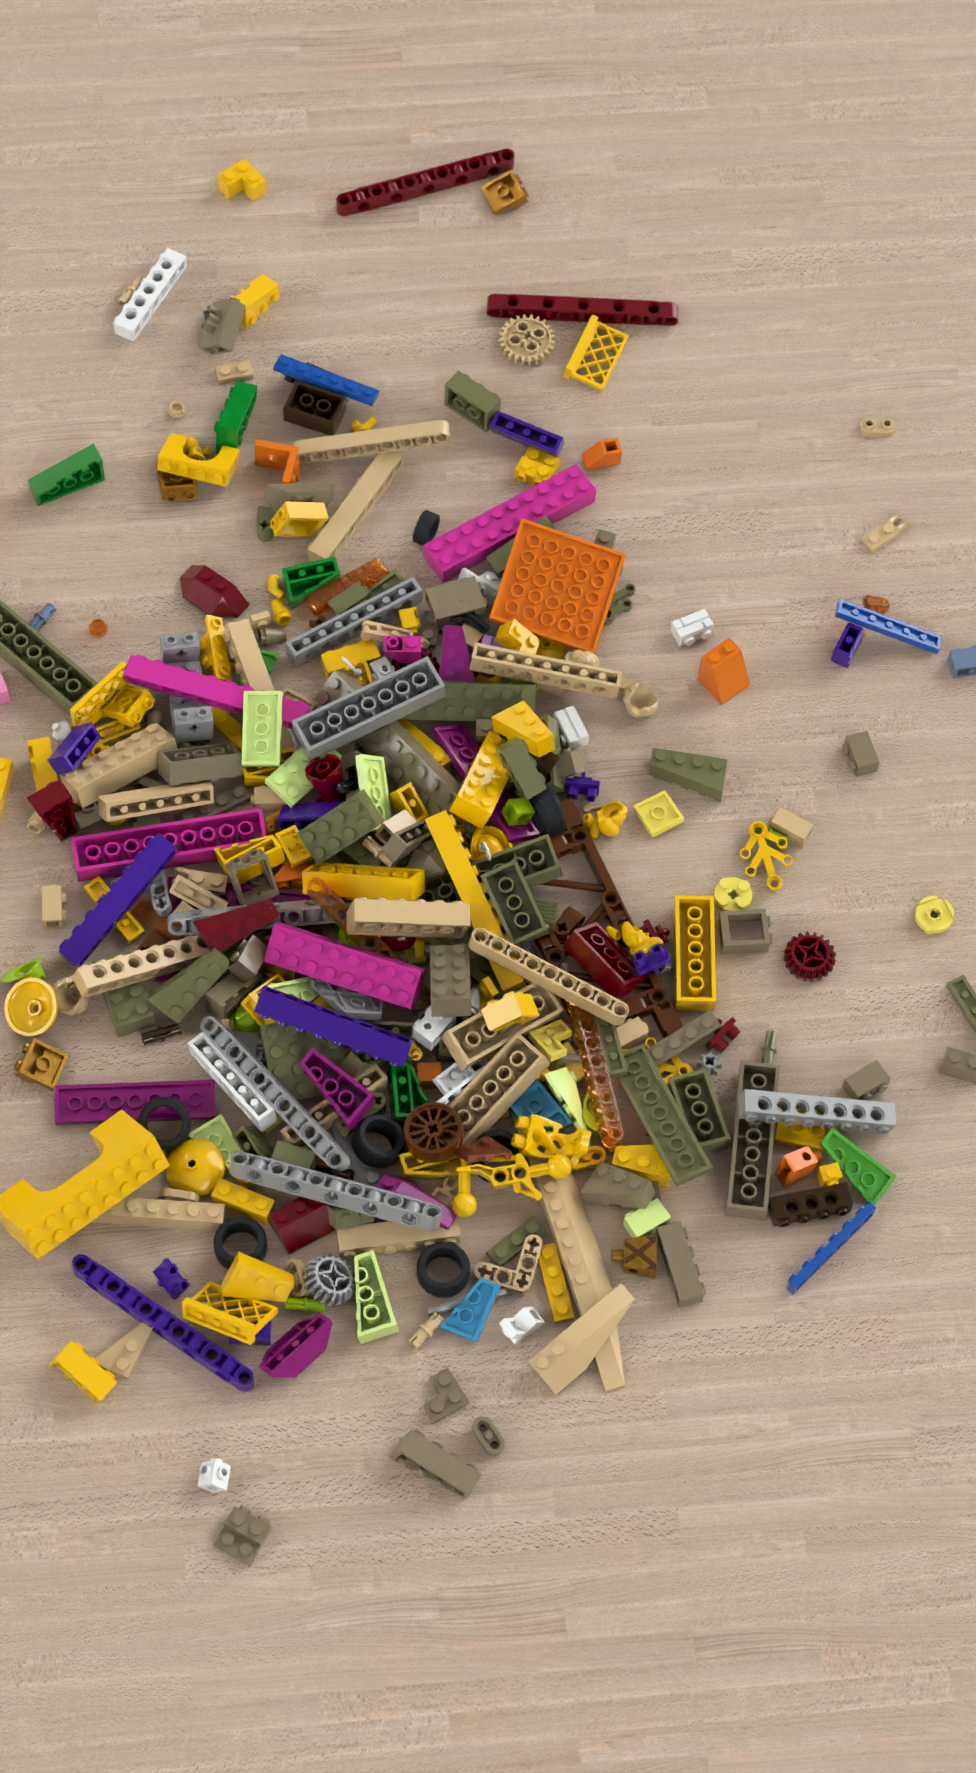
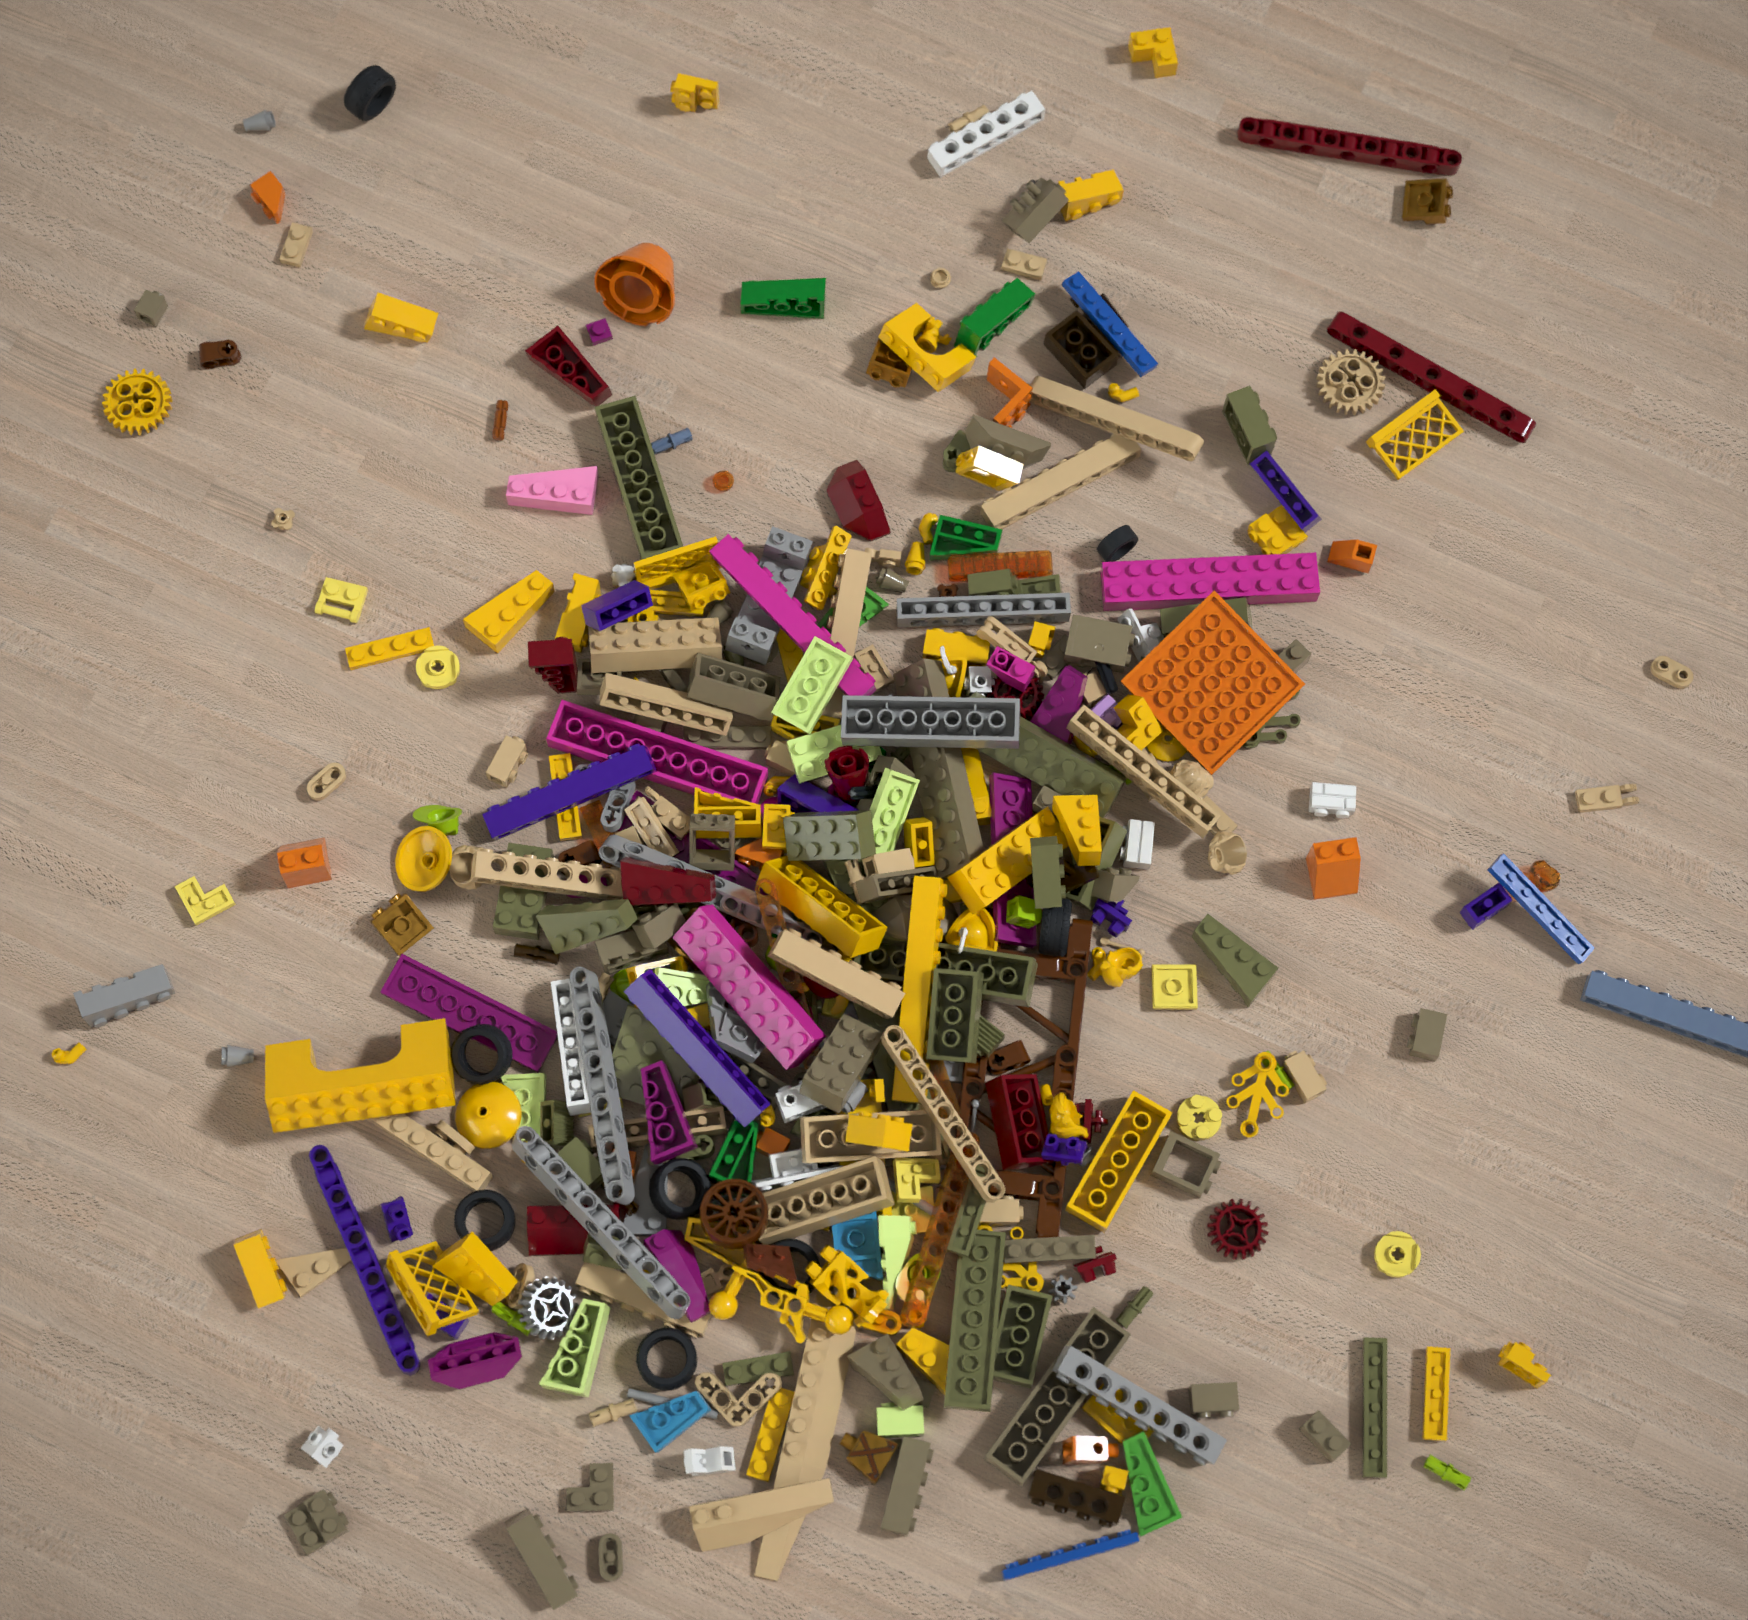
camera: 30 degrees right, 10 degrees up
(243, 1201) = (513, 1176): yellow brick -> none

